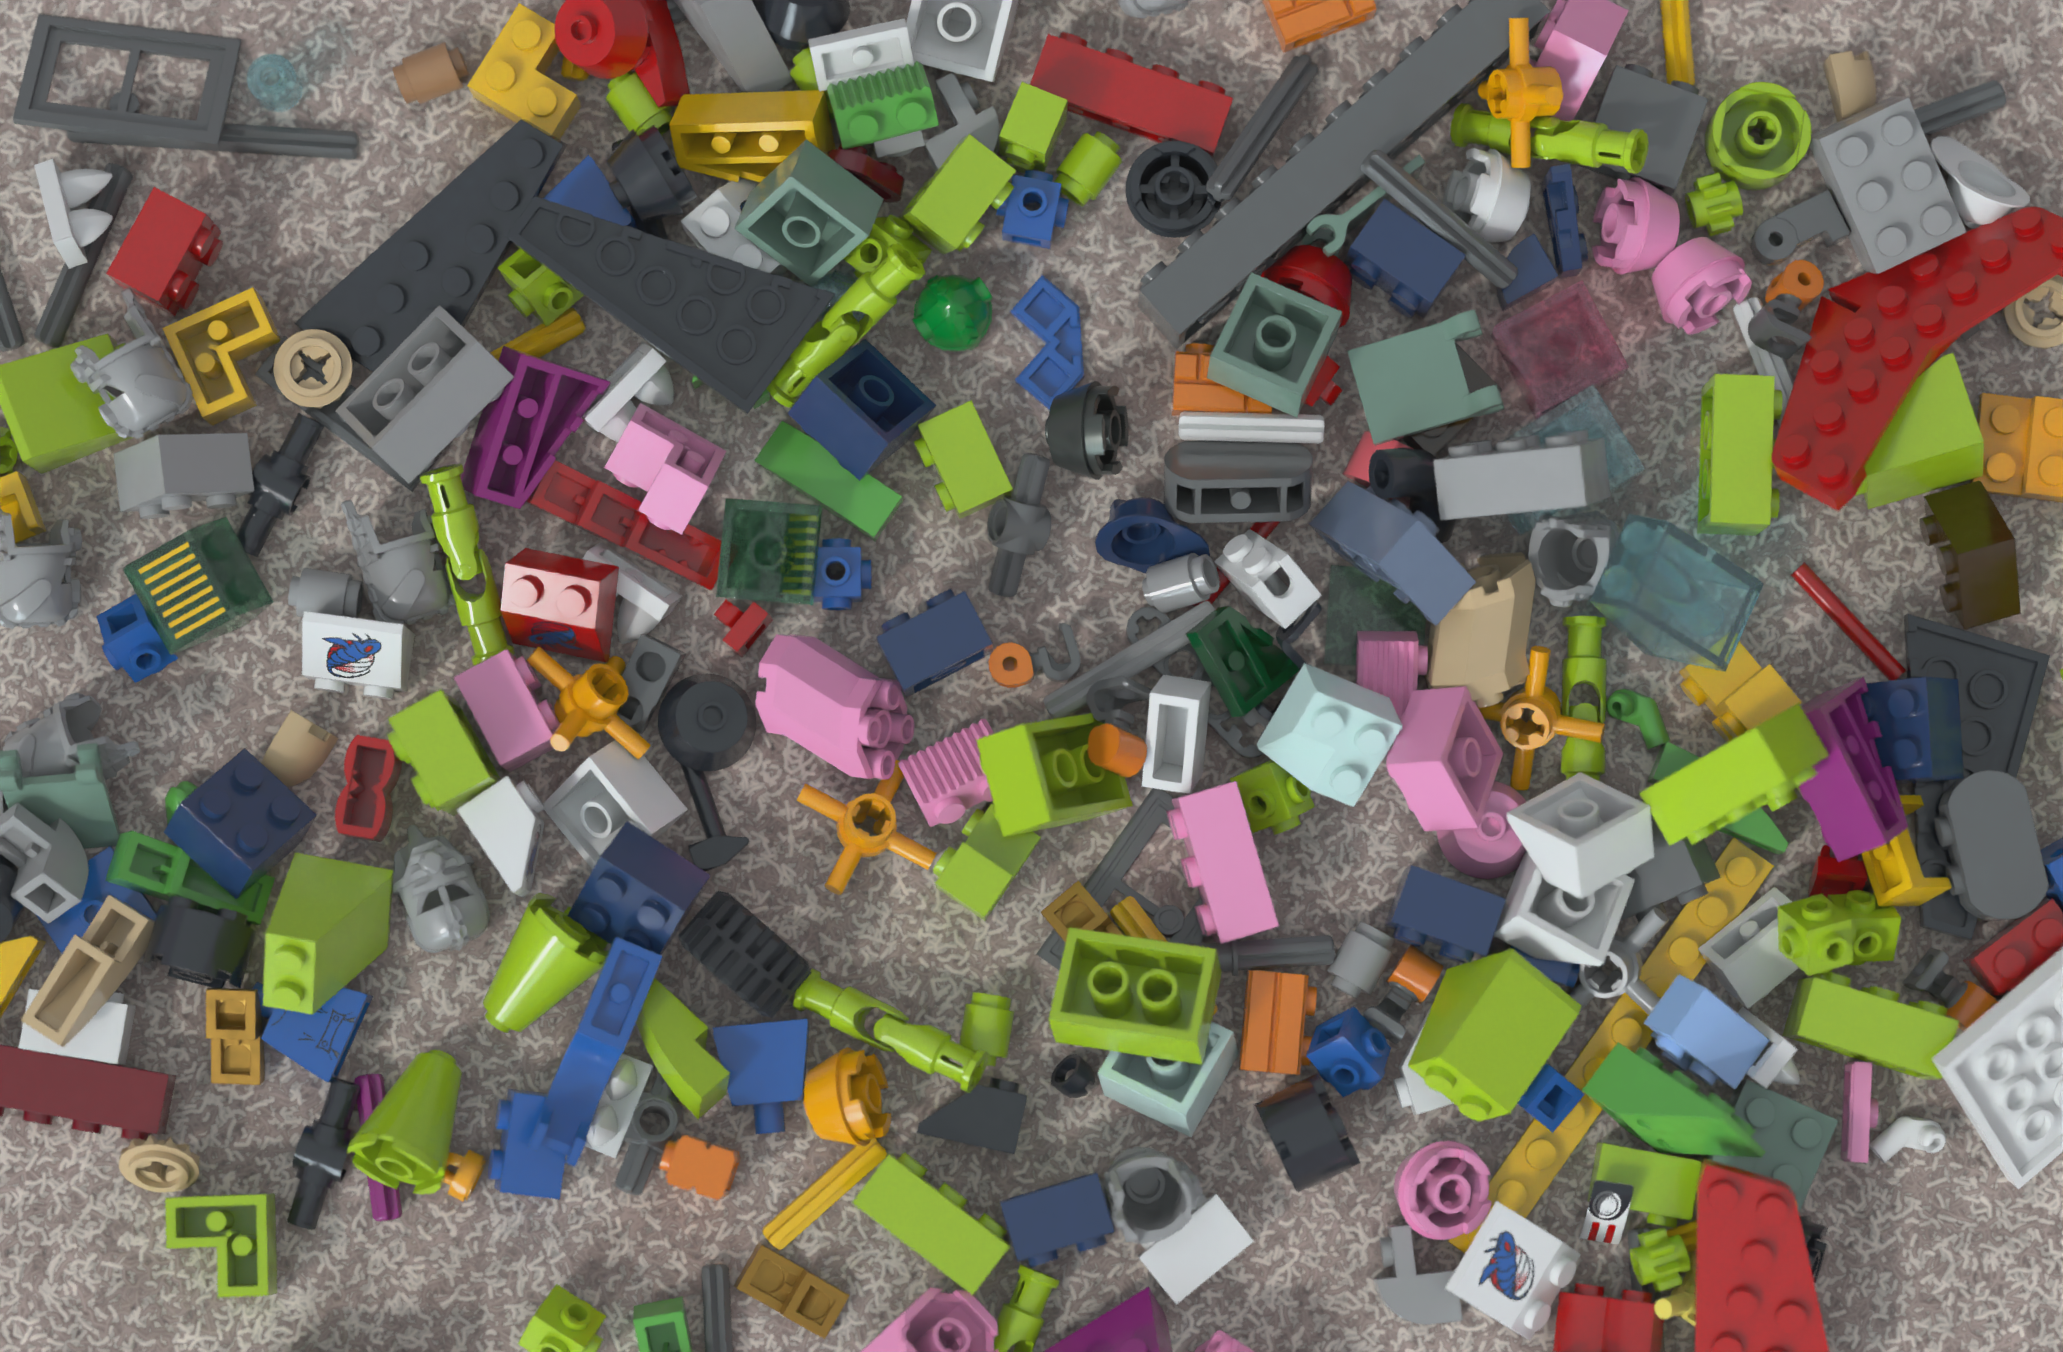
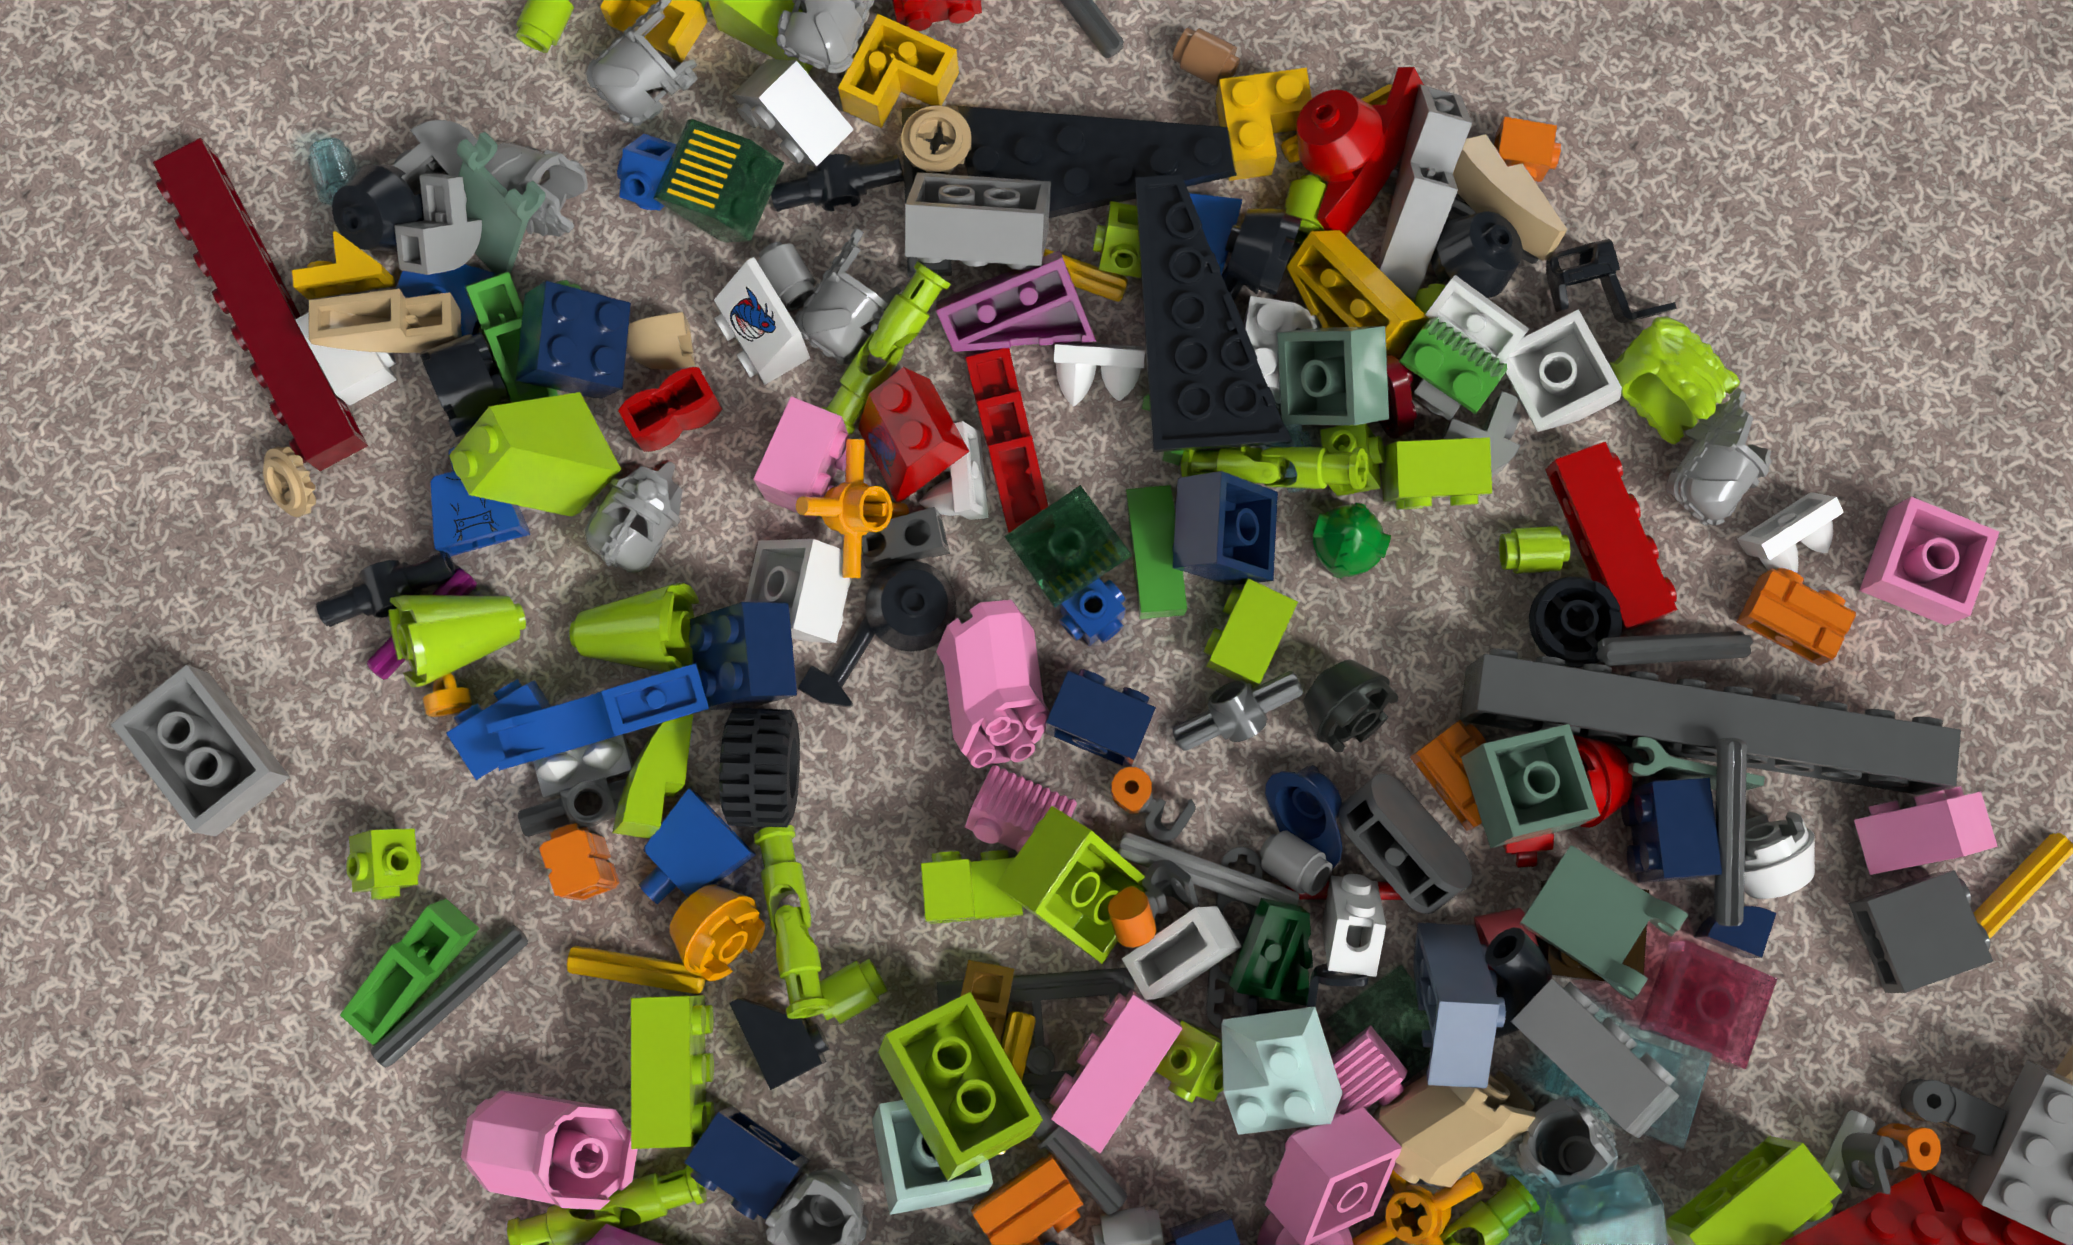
camera: 55 degrees right, 5 degrees down
(235, 1036) = (421, 460): pearl gold slope -> none
(239, 1228) = (280, 571): lime brick -> none
(443, 751) = (730, 434): lime brick -> none
(508, 830) = (715, 528): white slope -> none
(666, 463) = (1070, 426): bright pink brick -> none
(744, 627) = (1001, 577): red tile -> none
(791, 1290) = (545, 1005): pearl gold slope -> none
(858, 842) = (910, 781): light orange bar -> none
(1032, 128) = (1530, 485): lime brick -> none
(1037, 226) = (1470, 534): blue brick -> none
(1057, 323) = (1404, 620): blue tile -> none
(1077, 1082) = (863, 1091): black hinge -> none
(1251, 427) = (1452, 821): white axle -> none
(1521, 92) = (1877, 815): light orange bar -> none
(1561, 210) = (1804, 925): dark blue wing -> none
(1567, 141) = (1873, 886): lime piece -> none
(1636, 226) = (1848, 985): bright pink cone -> none
(1698, 283) = (1849, 1068): bright pink cone -> none
(1713, 204) = (1915, 1031): lime gear -> none
(1780, 122) = (1996, 1022): lime brick -> none

